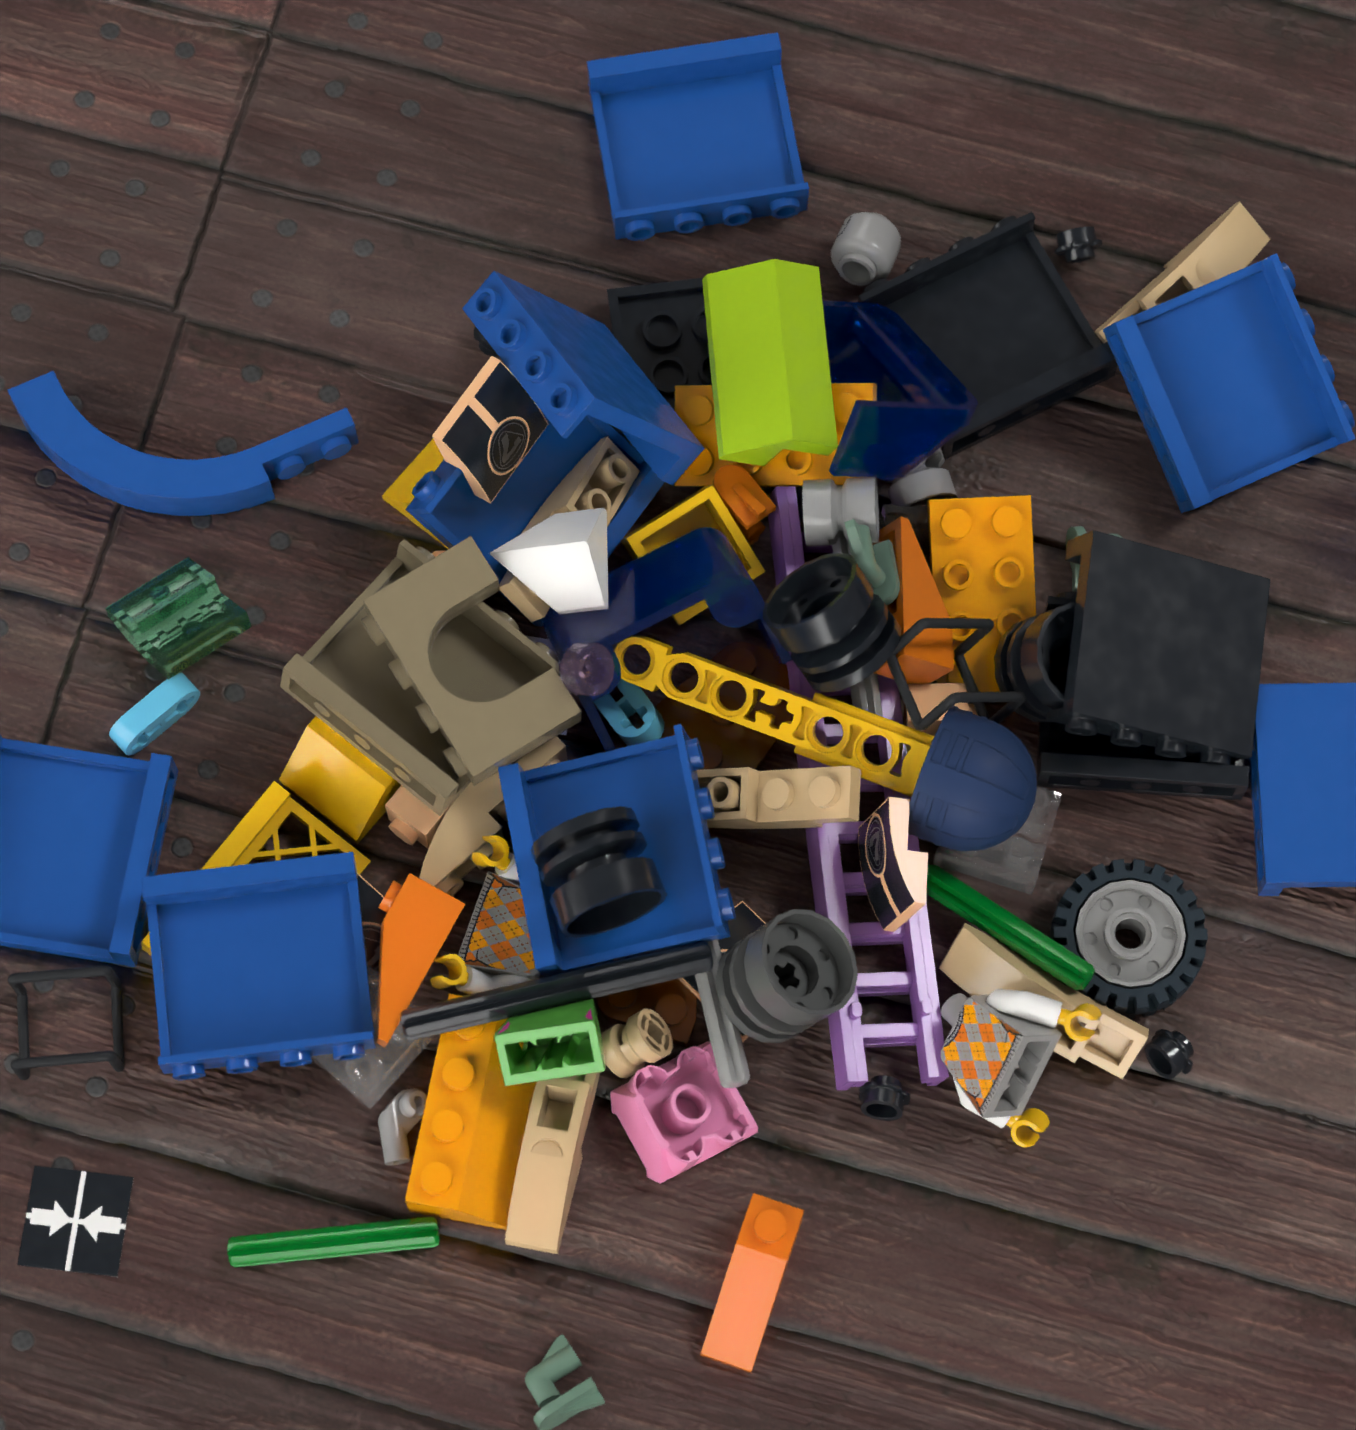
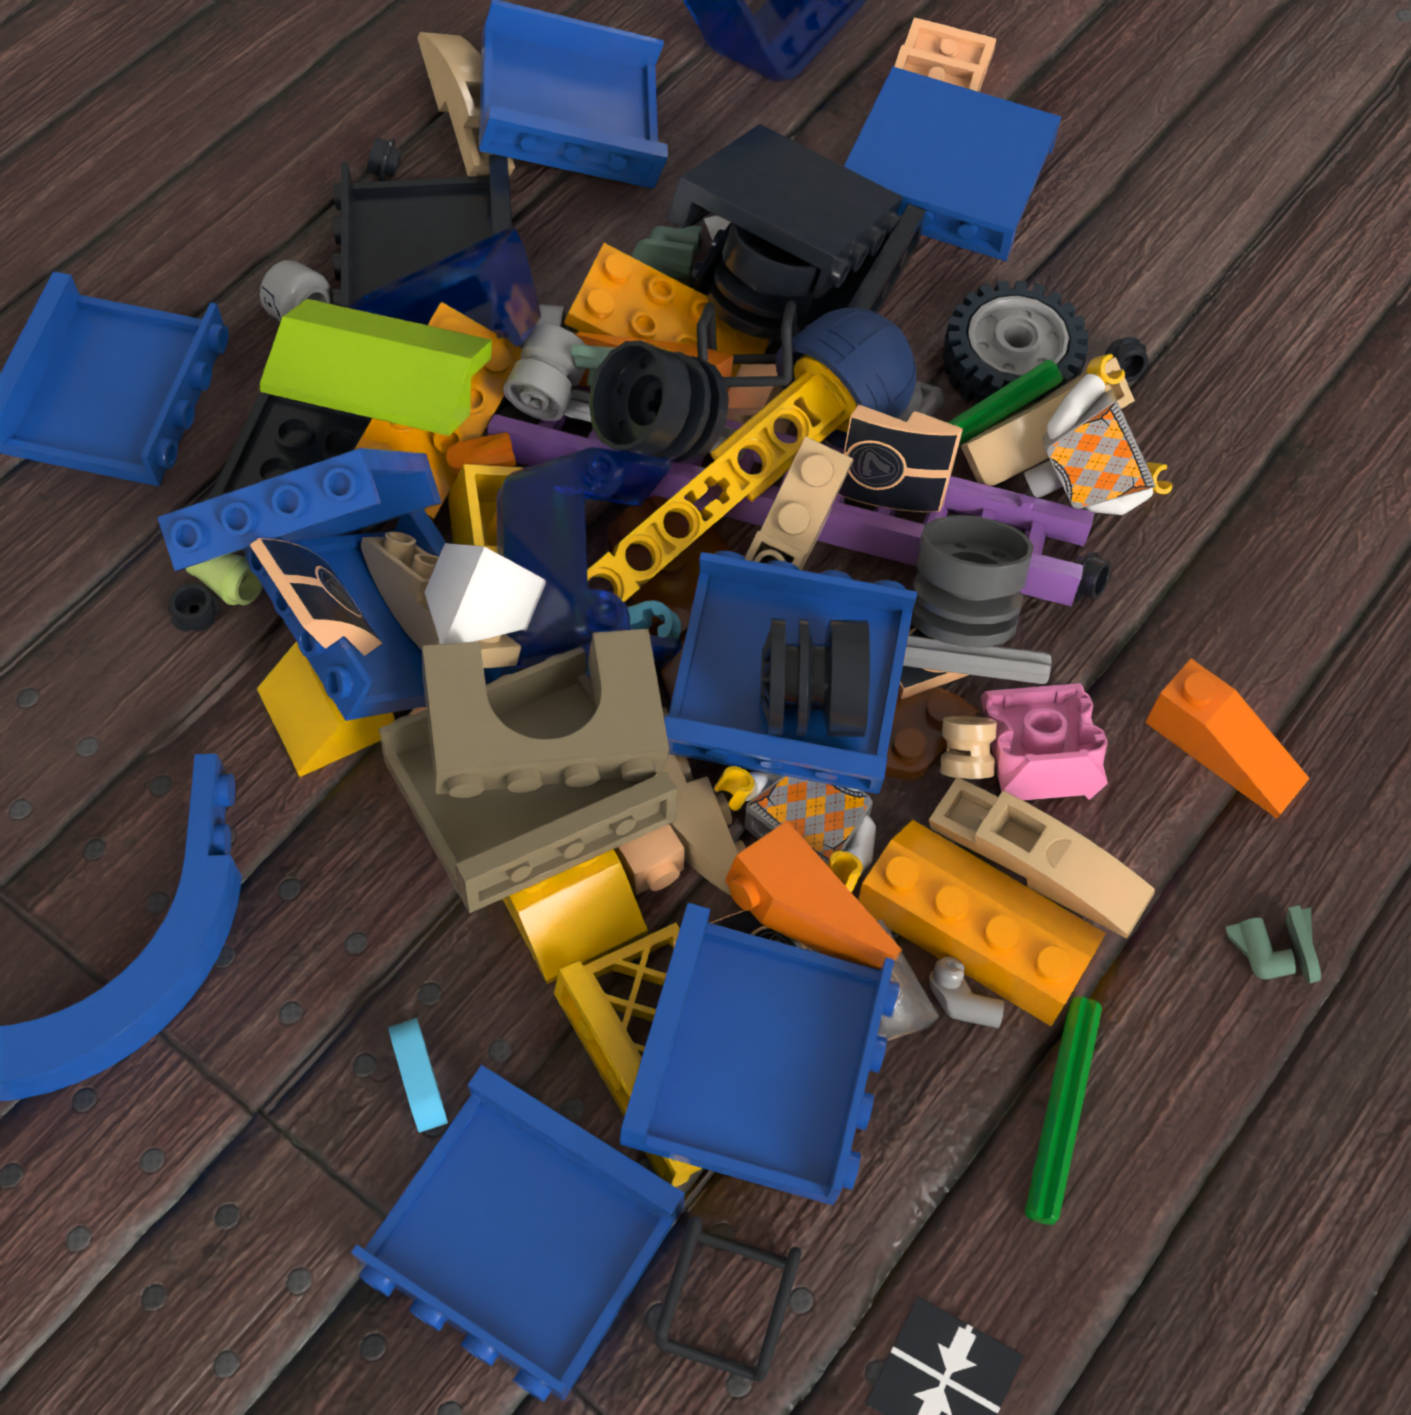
camera: 70 degrees left, 10 degrees down
(178, 617) = (324, 1010): clear green slope -> none
(555, 1044) = (957, 793): bright green torso -> none
(556, 990) = (906, 782): black axle -> none
(587, 669) = (607, 607): clear purple tile -> none

